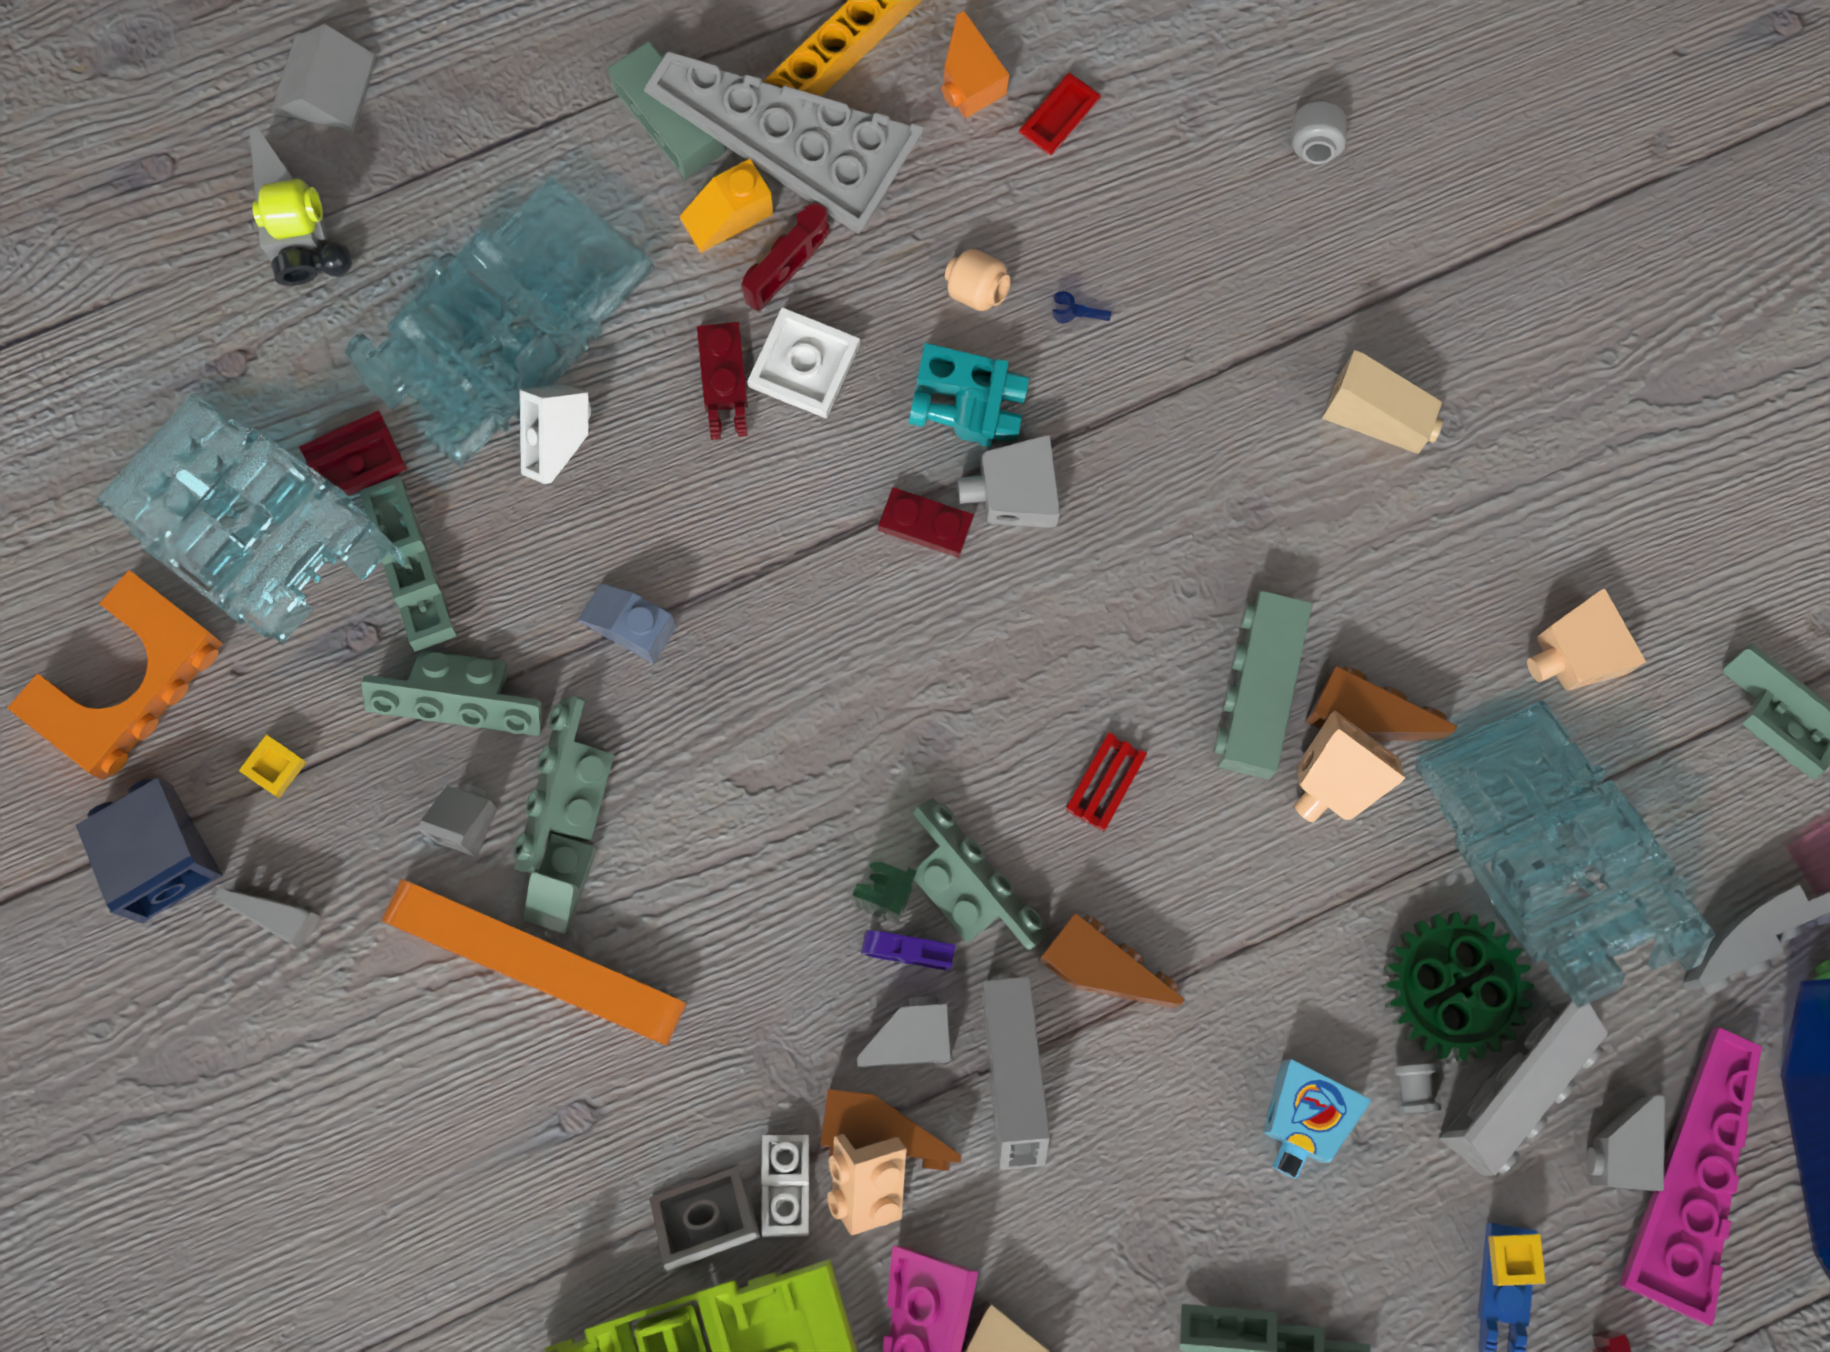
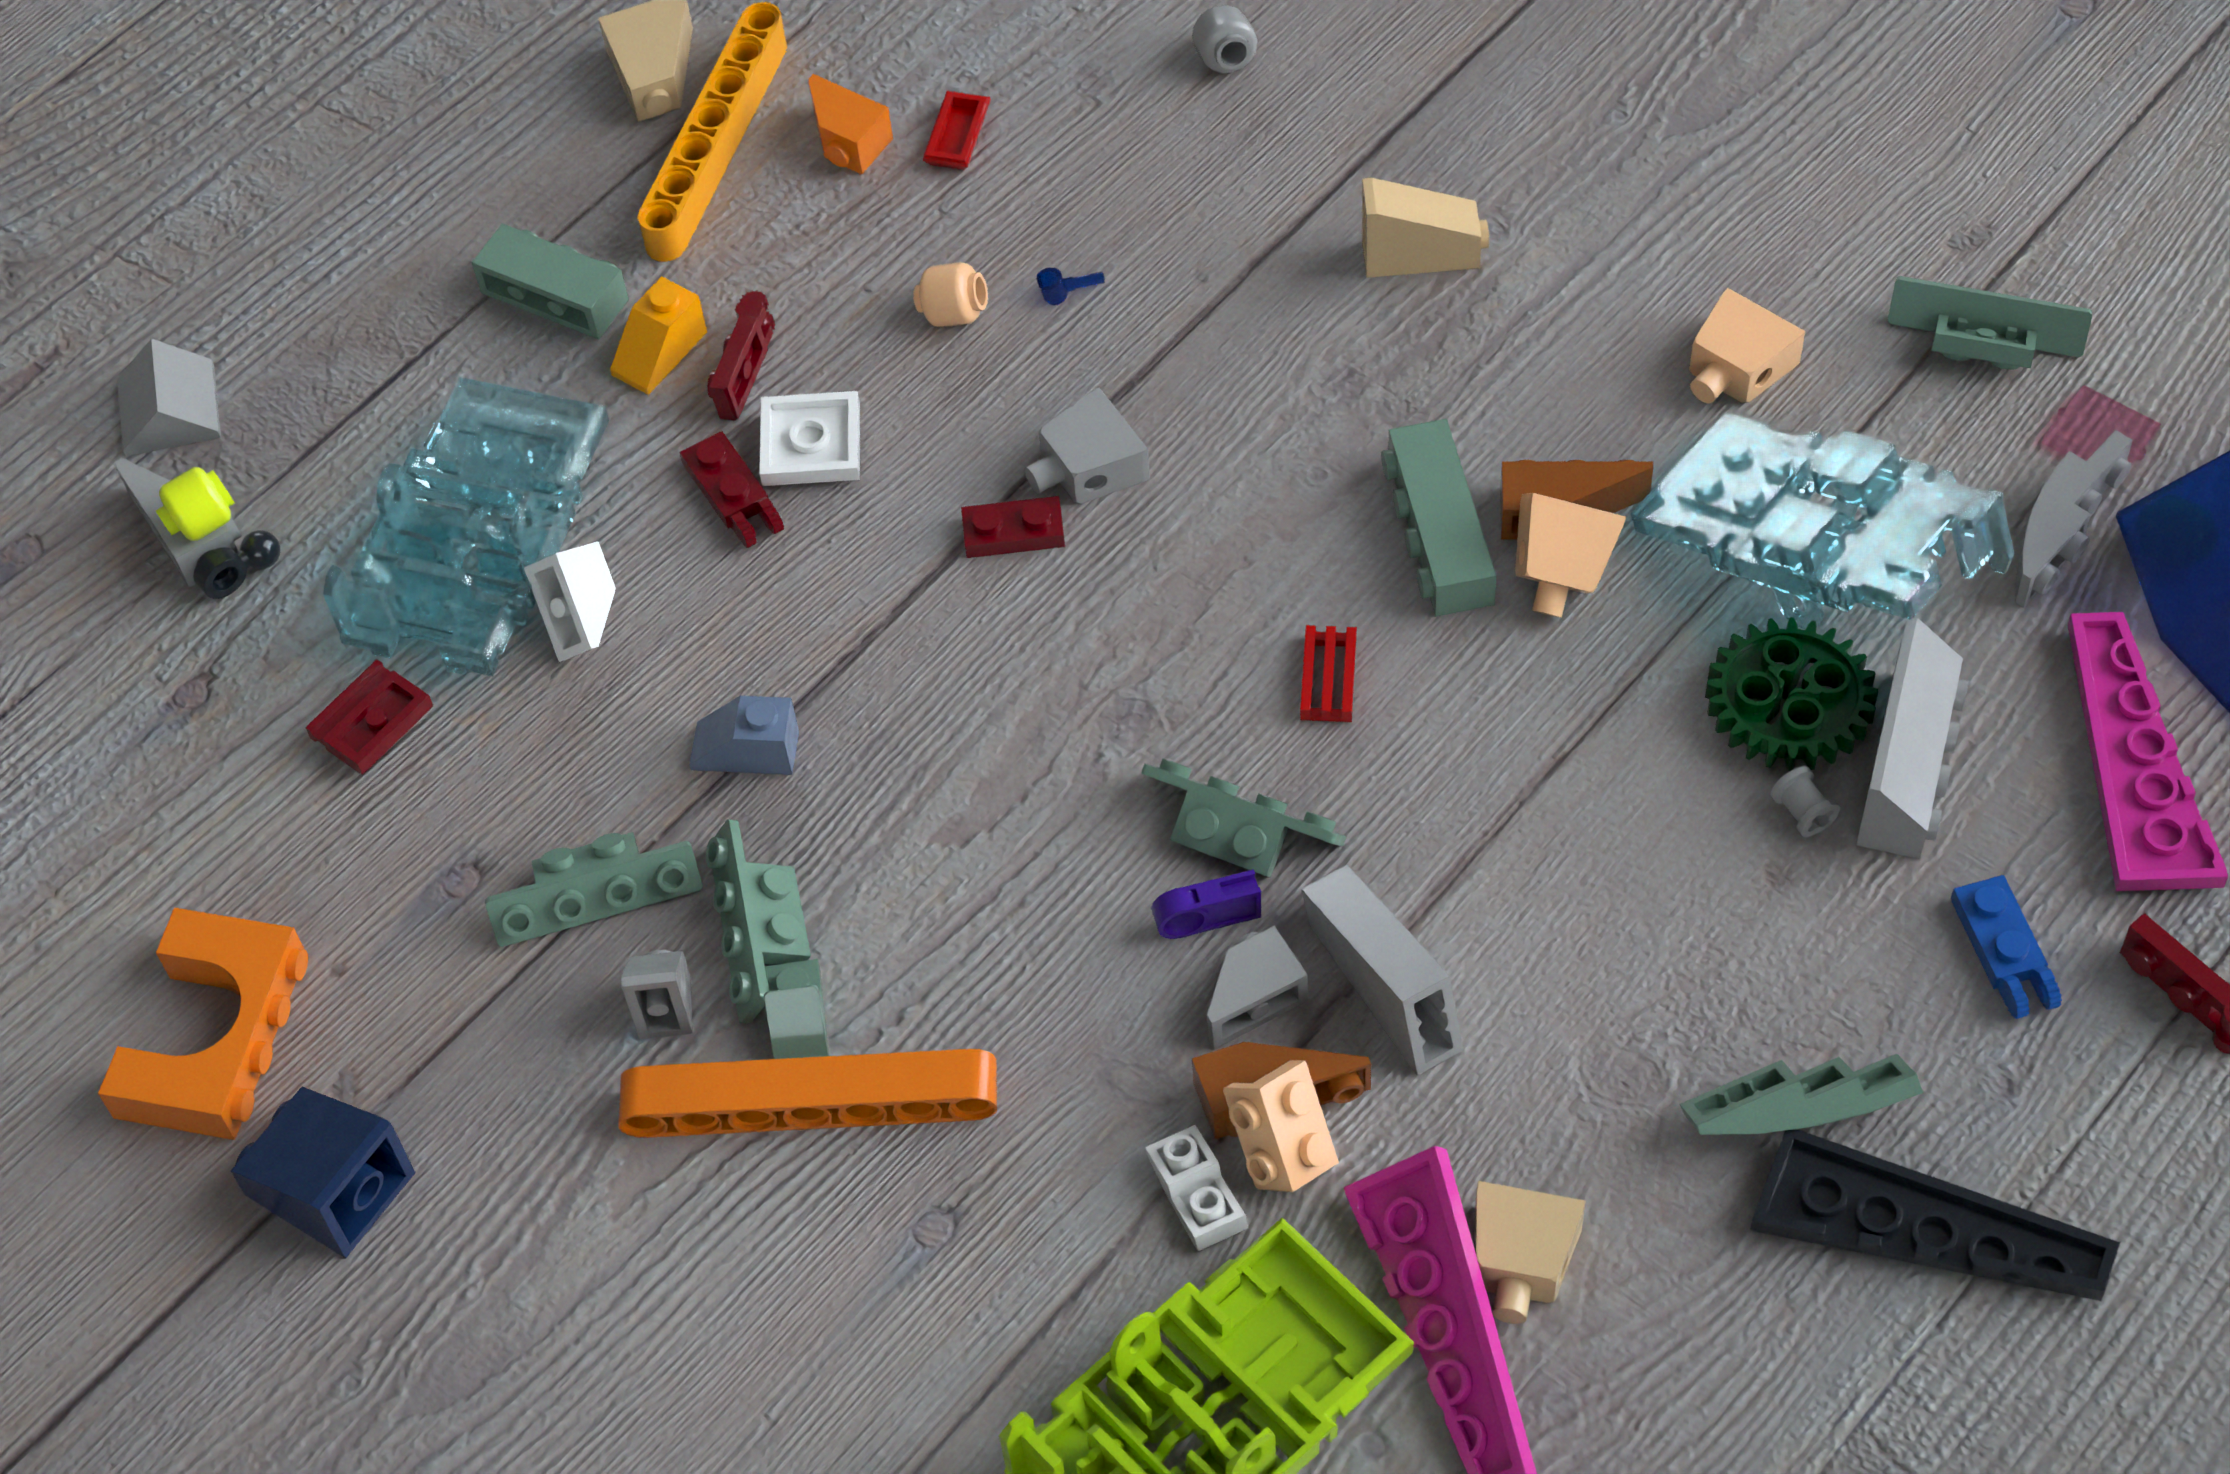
camera: 15 degrees left, 20 degrees down
(194, 477) = (208, 811): clear light blue piece -> none
(272, 766) = (422, 1035): yellow plate -> none
(281, 919) = (491, 1174): light grey slope -> none
(416, 583) = (478, 787): sand green slope -> none
(703, 1218) = (1129, 1257): light grey slope -> none
(792, 135) = (695, 241): light grey wing -> none
(889, 892) = (1152, 857): clear green hinge -> none
(978, 390) = (1003, 385): teal hips -> none
(1099, 966) = (1417, 833): dark orange slope -> none
(1309, 1116) = (1709, 871): medium azure torso -> none
(1516, 1259) = (1994, 895): yellow plate -> none
(1631, 1148) = (2054, 761): light grey slope -> none

